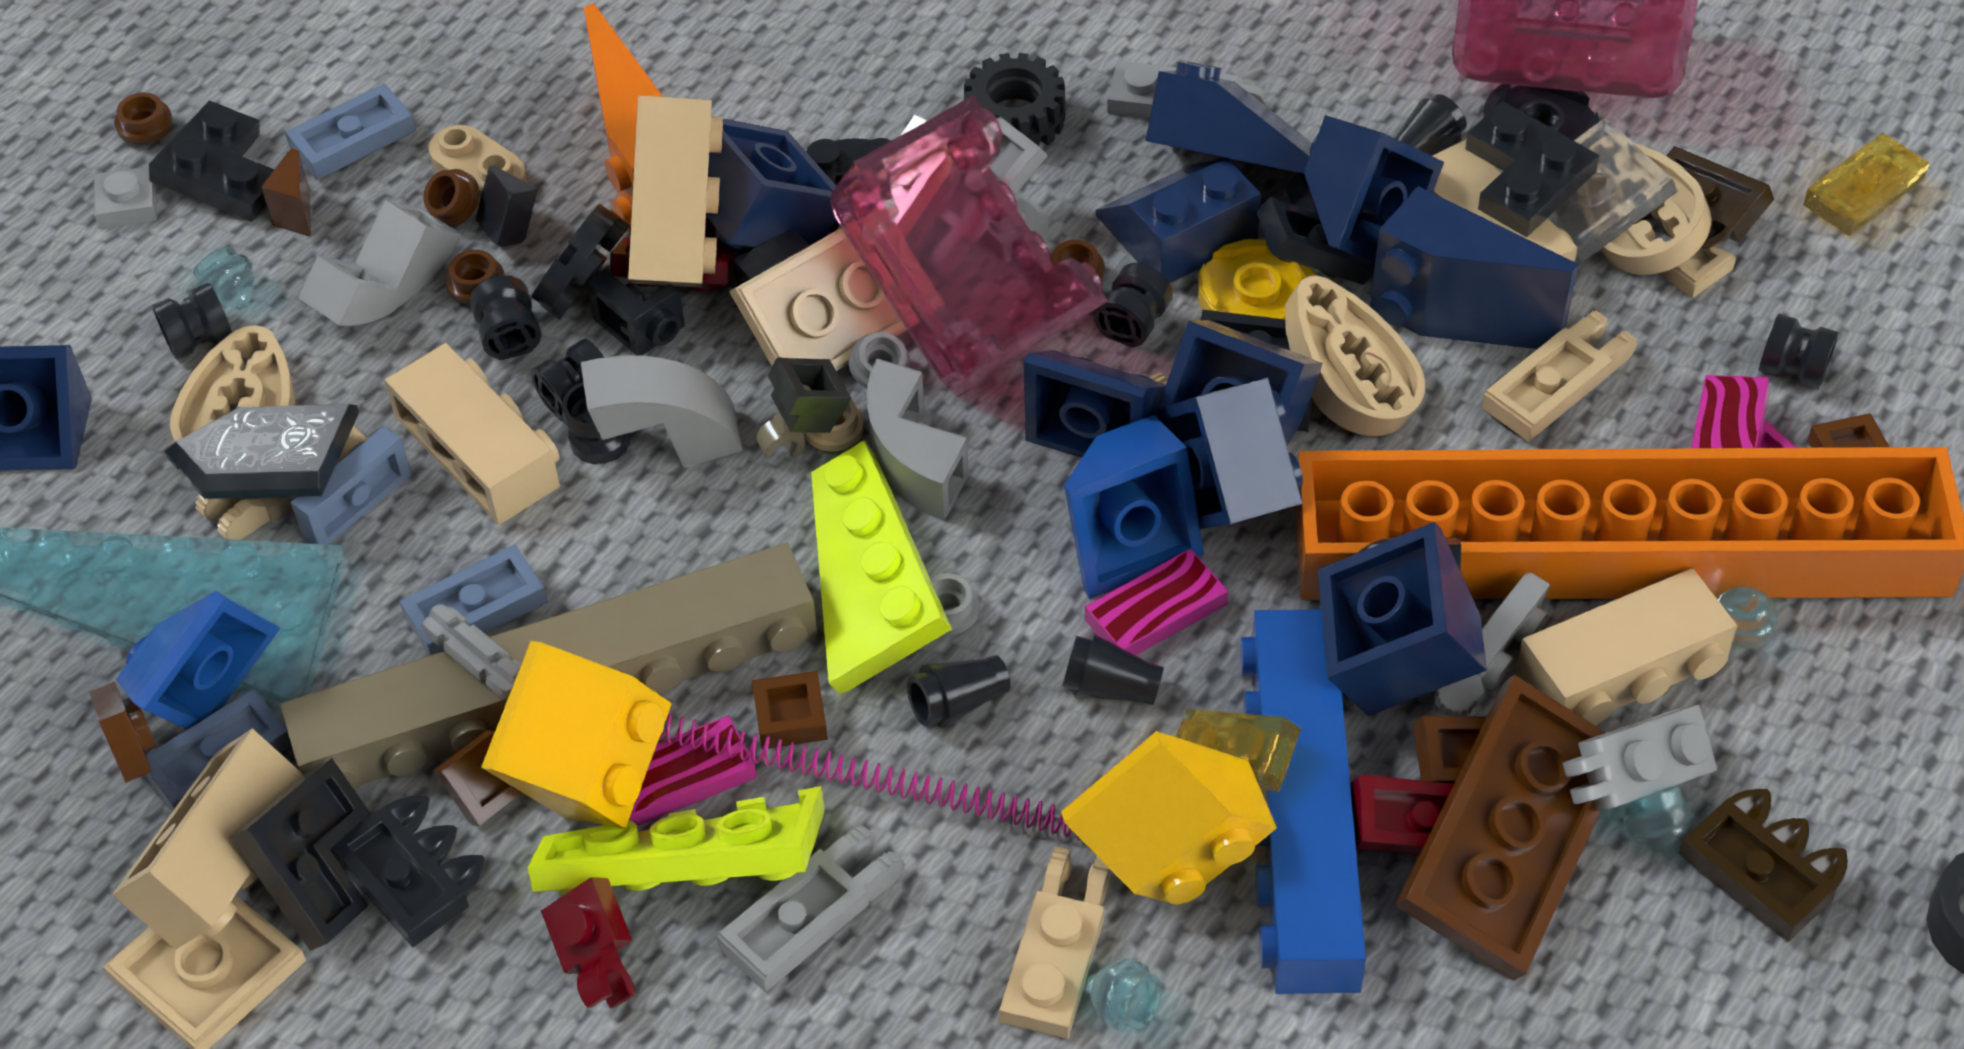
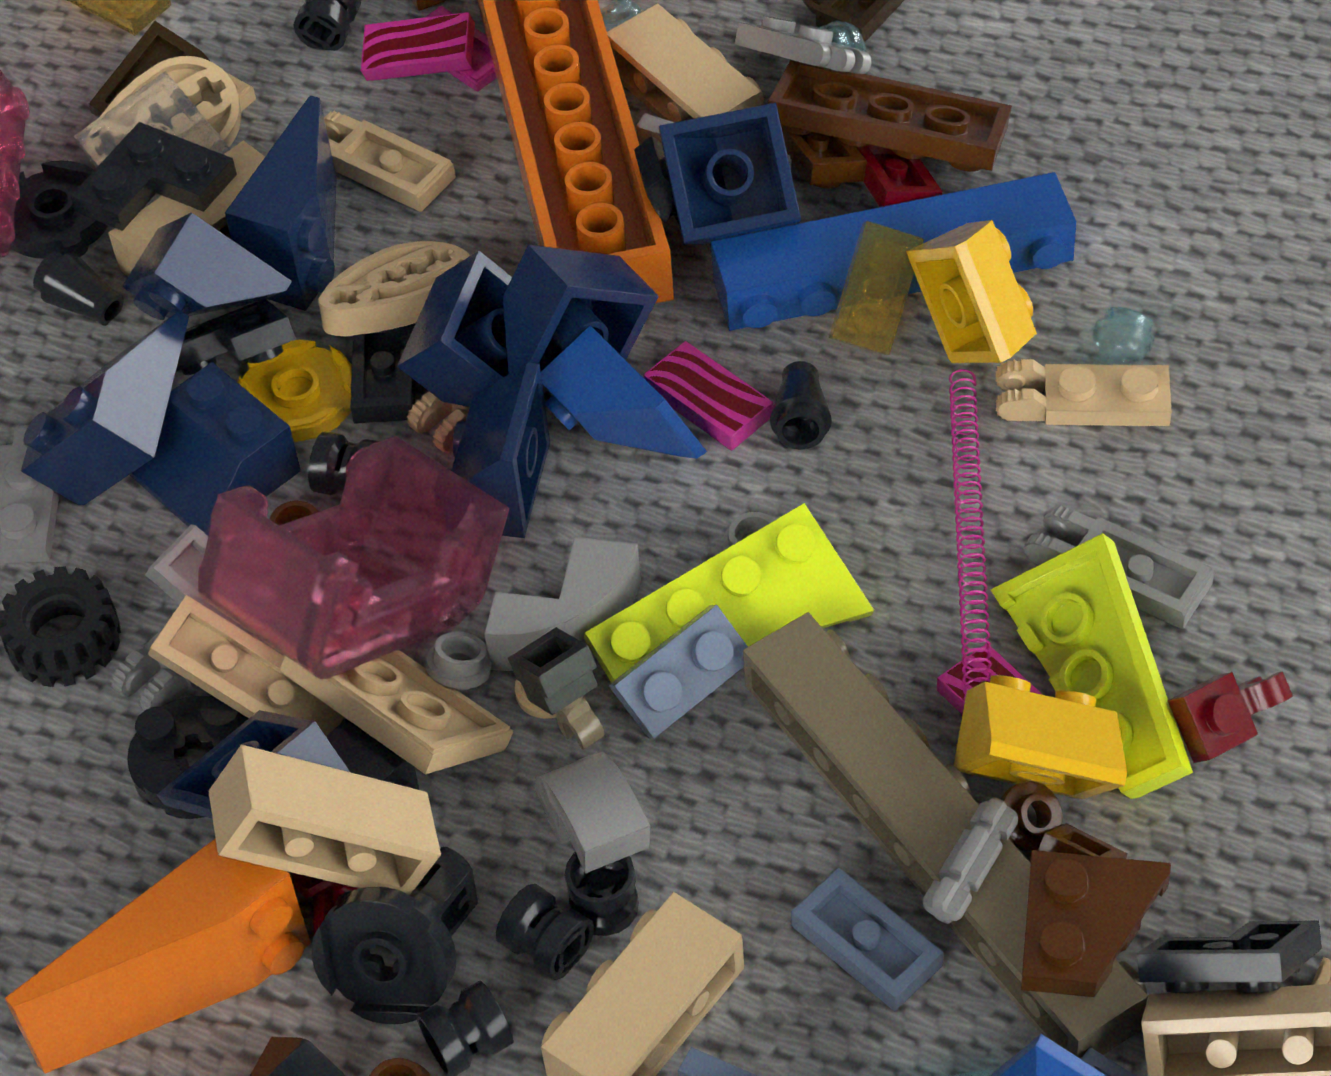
camera: 100 degrees left, 0 degrees up
(387, 726) = (1083, 917): none -> reddish brown wing
(404, 869) = (1214, 888): black plate -> none
(790, 709) = (916, 631): reddish brown plate -> none
(801, 510) = (681, 671): none -> sand blue plate
(954, 689) = (856, 512): black cone -> none

